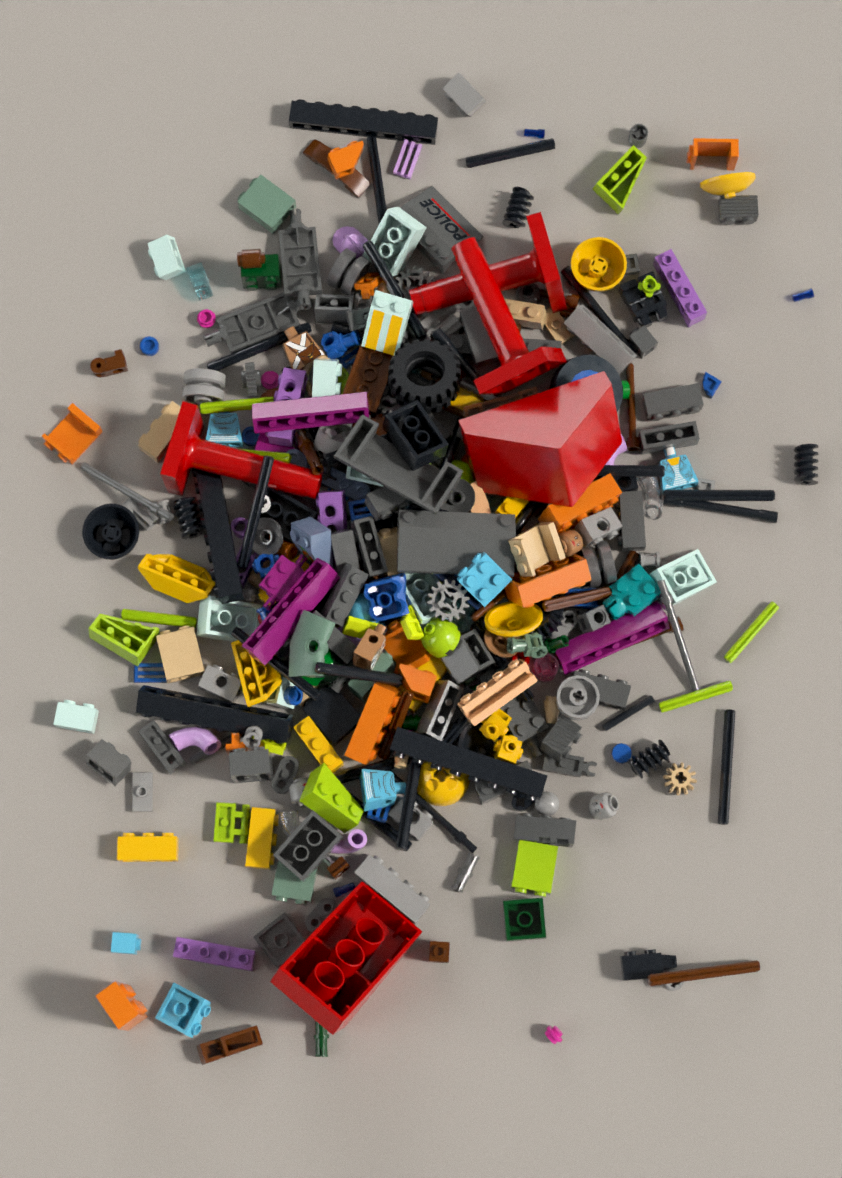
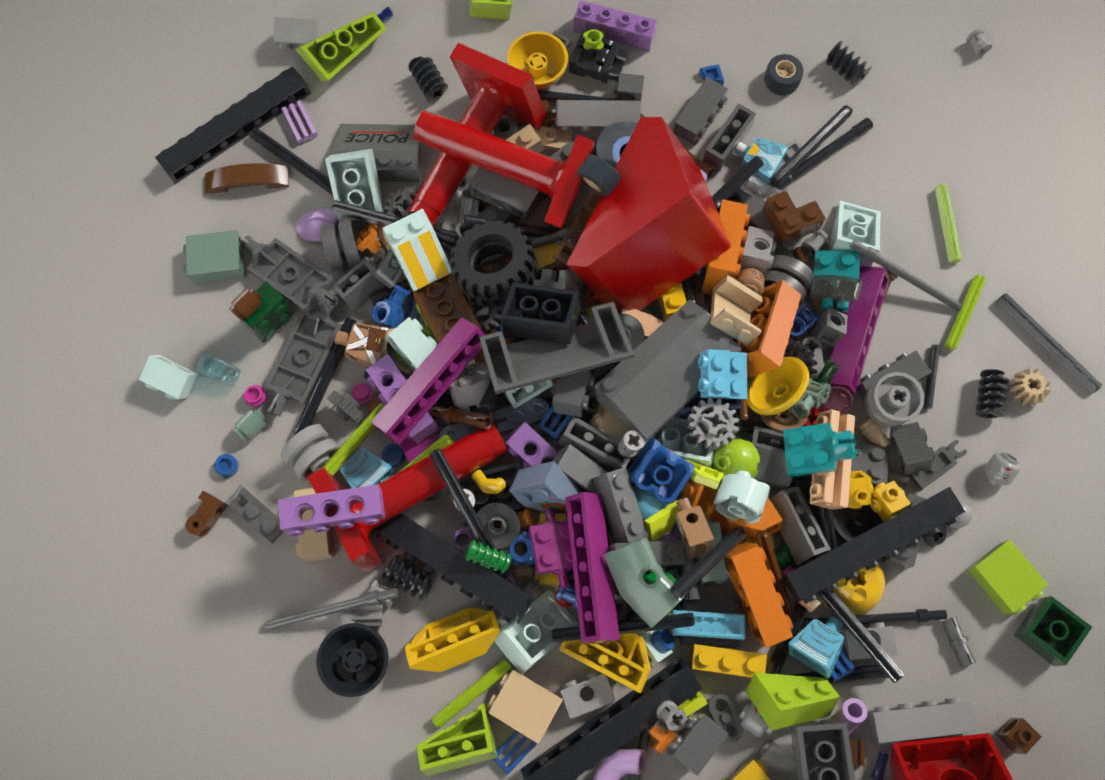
camera: 45 degrees left, 5 degrees down
(72, 435) = (231, 608): orange panel -> none
(139, 394) = (256, 514): none -> dark grey plate
(155, 412) = (293, 508): none -> medium lavender brick
(186, 334) = (250, 424): none -> sand green brick
(240, 548) = (487, 556): none -> green piece
(283, 507) = (490, 486): none -> yellow arm
(329, 715) = (713, 626): none -> medium azure plate
(345, 159) = (247, 162): orange slope -> none
(391, 561) = (629, 438): none -> light grey bush
(416, 657) = (741, 497): none -> light aqua brick
(446, 428) = (548, 279): none -> light grey hips
(480, 131) = (337, 48): none -> lime wedge
(490, 675) = (816, 449): none -> teal plate
(509, 153) = (377, 47): black axle -> none
(531, 384) = (599, 175): none -> black wheel
(545, 830) = (984, 536): dark grey wedge -> none
(576, 599) = (803, 325): reddish brown axle -> none
(618, 597) = (837, 287): none -> clear smoke slope
(621, 753) = (963, 413): blue tile -> none
(640, 532) = (792, 222): none -> reddish brown brick
(759, 424) = (783, 74): none -> black wheel

